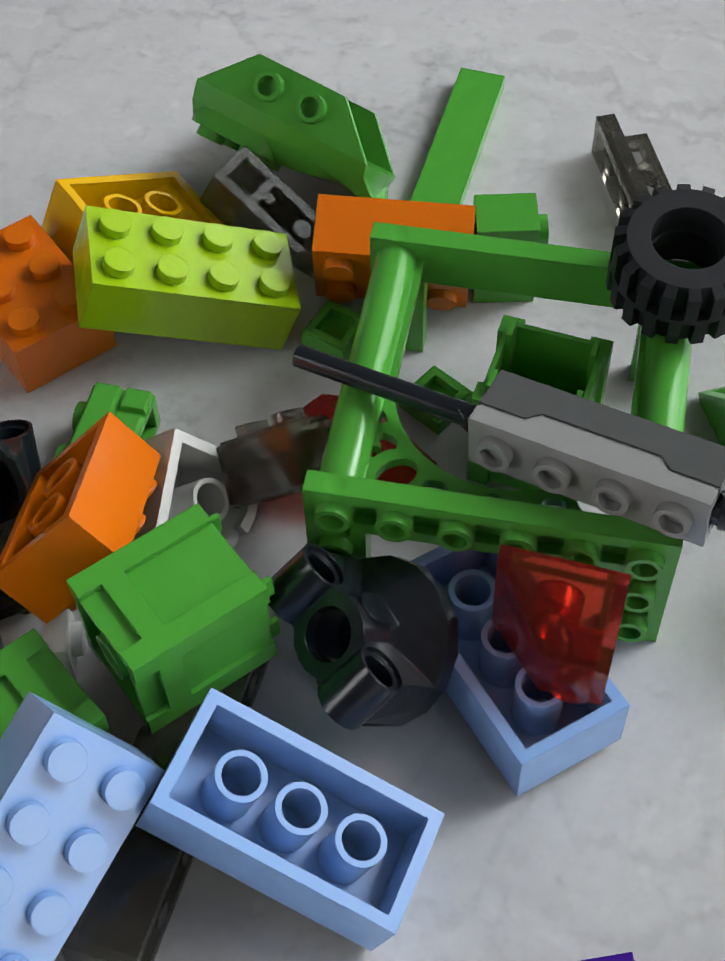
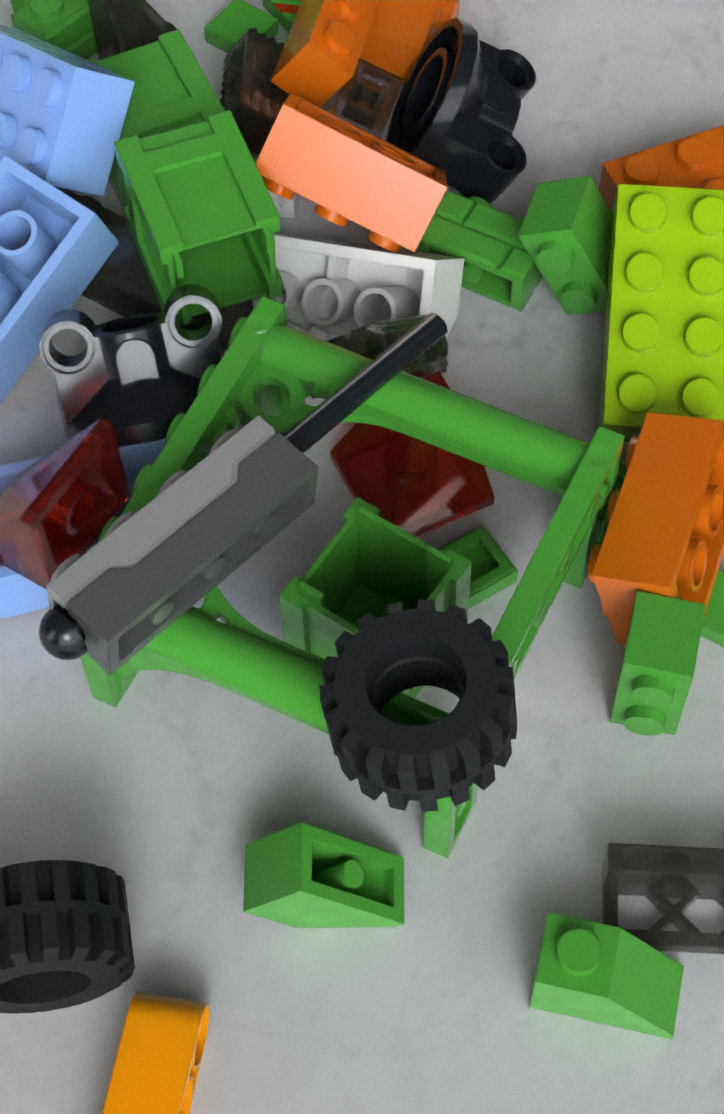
camera: 105 degrees right, 5 degrees up
(114, 354) = (570, 241): none -> bright green brick

